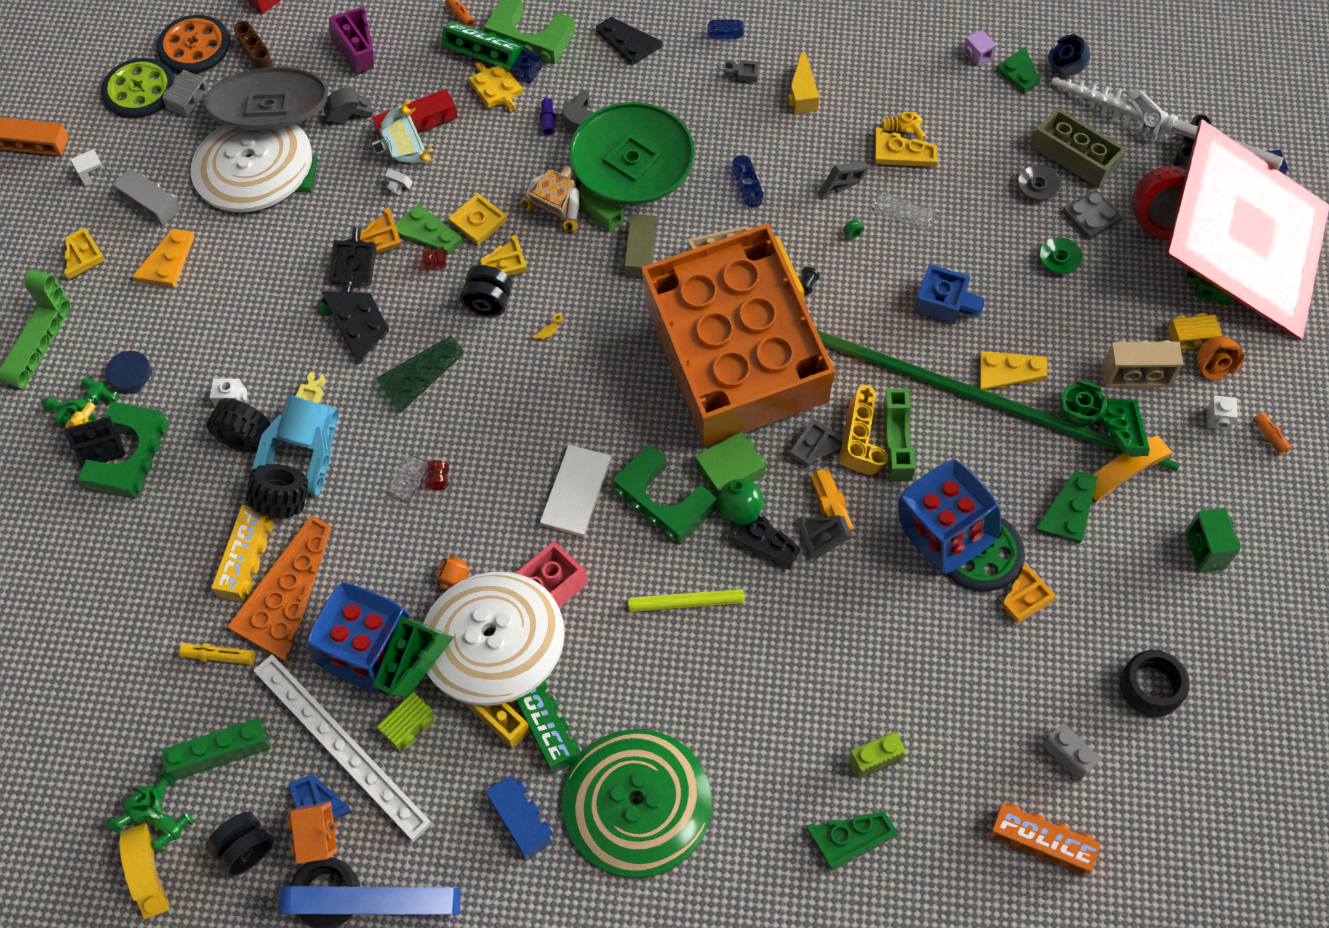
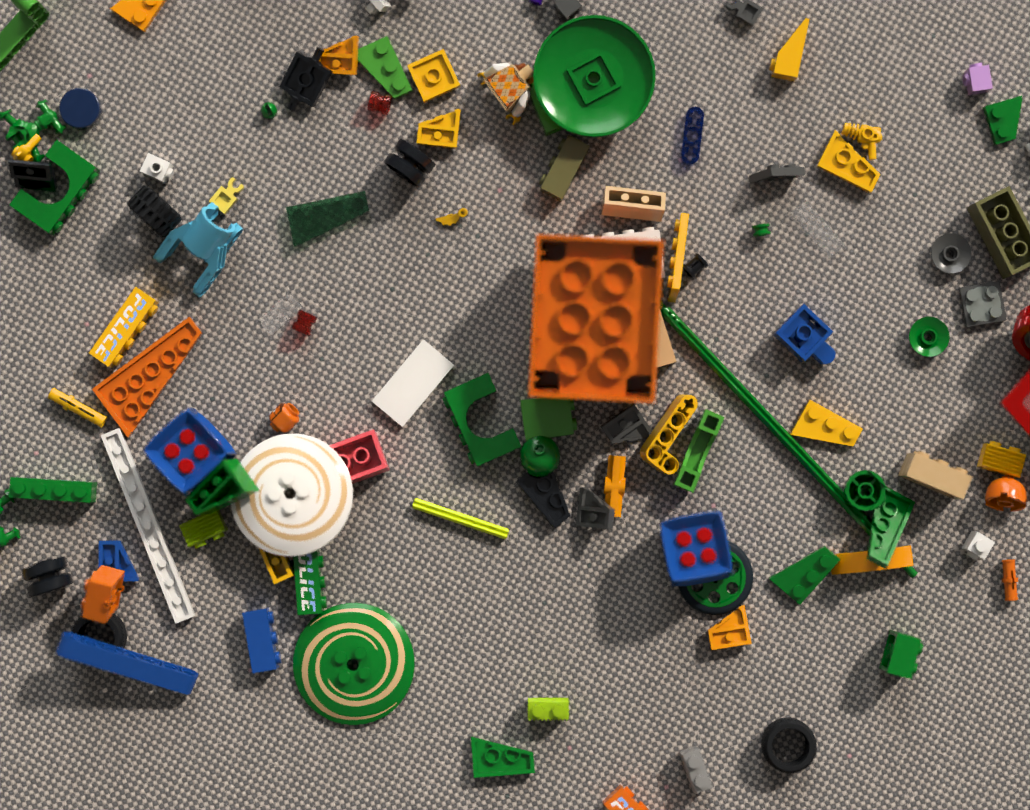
camera: 20 degrees right, 25 degrees up
(276, 490) = (174, 276): black tyre -> none
(357, 320) = (290, 141): black wing -> none

